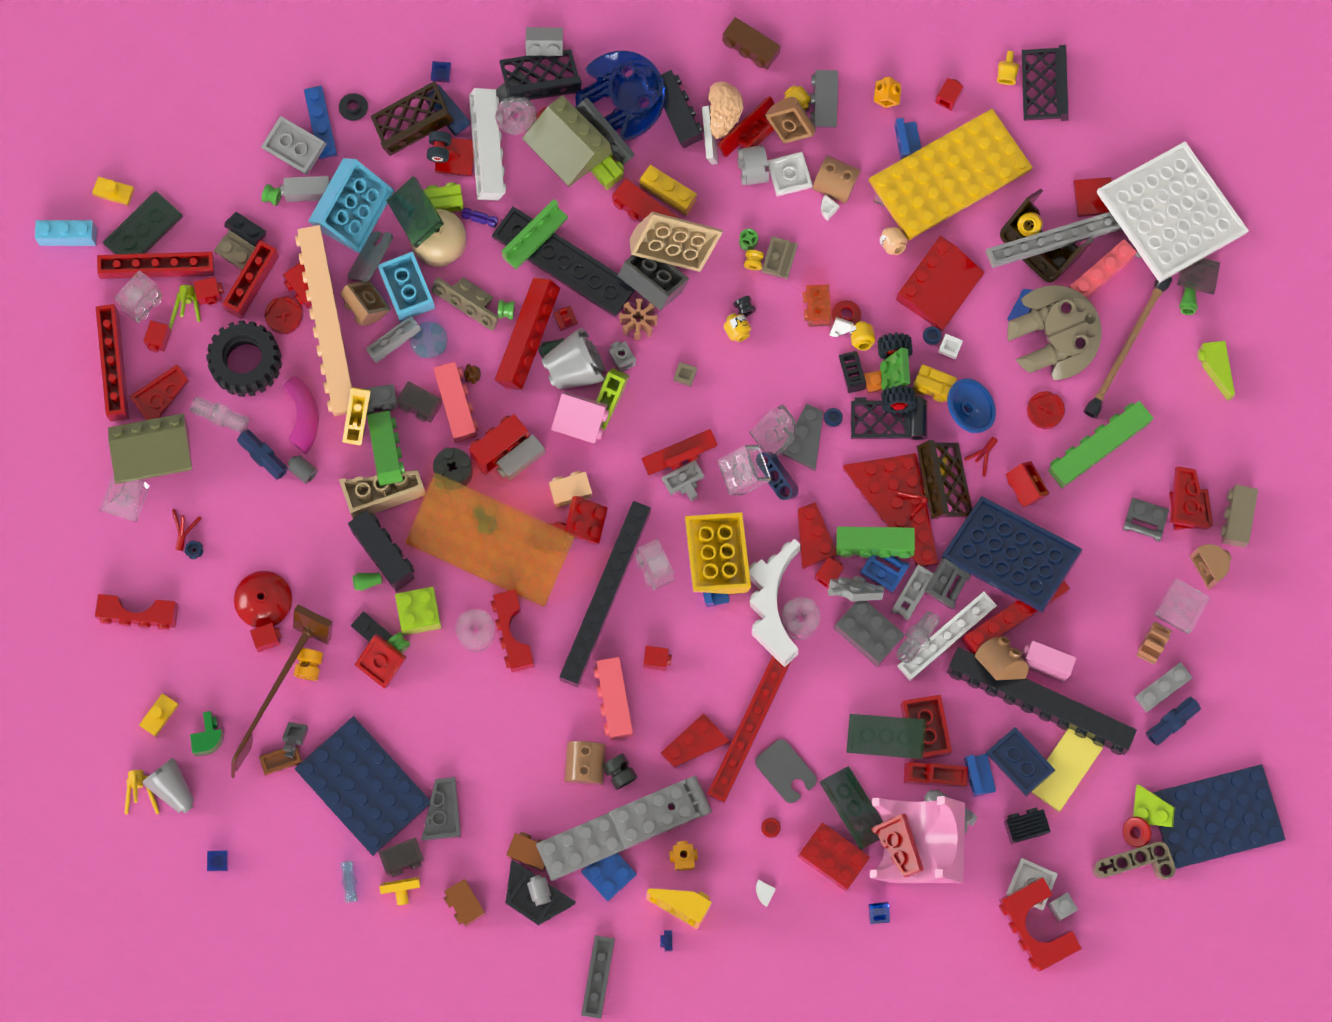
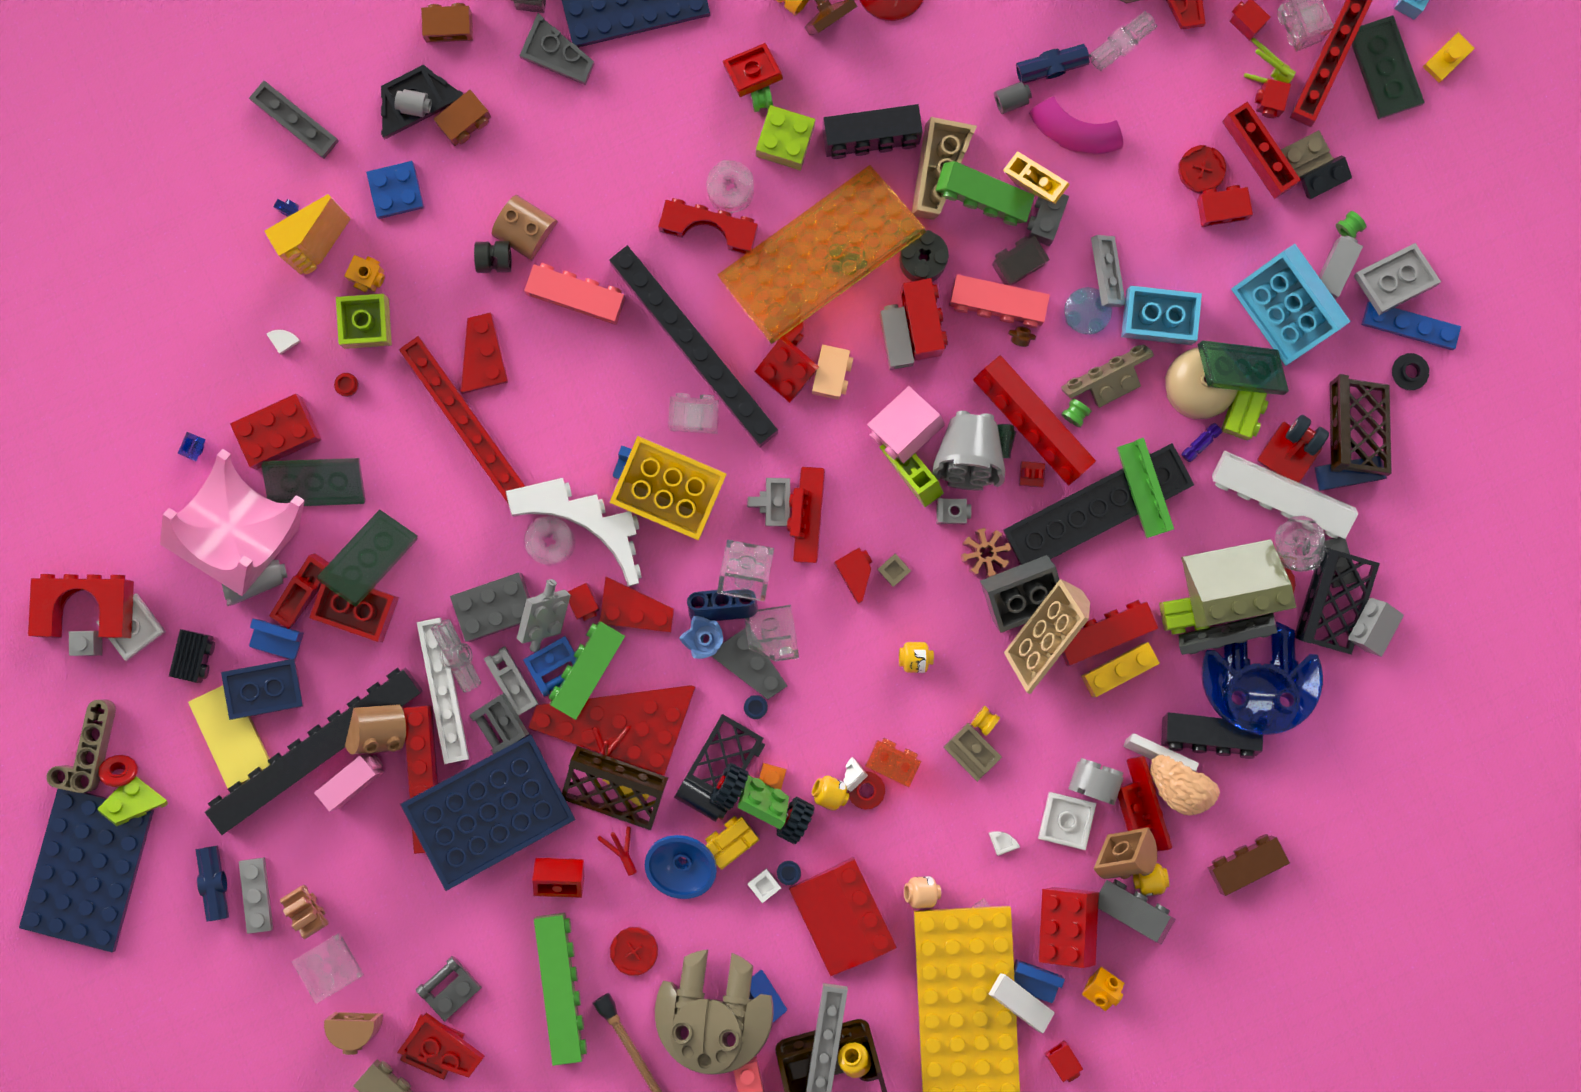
camera: 115 degrees right, 10 degrees up
(240, 335) = (1189, 72): black tyre -> none
(326, 318) = (1172, 207): light nougat brick -> none
(363, 581) = (851, 99): bright green cone -> none
(364, 302) = (1167, 262): medium nougat brick -> none
(368, 627) = (794, 80): black plate -> none
(370, 257) = (1218, 294): dark grey piece -> none
(441, 71) = (1401, 491): clear blue plate -> none
(623, 828) = (429, 228): light grey hinge -> none
(657, 658) = (593, 363): red brick -> none
(701, 398) = (855, 572): none -> red slope
(718, 837) = (363, 321): none -> lime brick
(744, 306) = (936, 679): black wheel -> none
(750, 236) = (1016, 729): bright green wheel -> none
(781, 767) = (404, 434): dark grey piece -> none
(813, 481) = (694, 637): none -> medium blue piece
(836, 179) = (1031, 870): medium nougat brick -> none
(854, 383) = (777, 752): black slope -> none
(860, 133) = (1068, 927): none -> red brick
(899, 841) = (243, 504): wing -> none
(928, 138) = (1021, 1003): none -> white tile

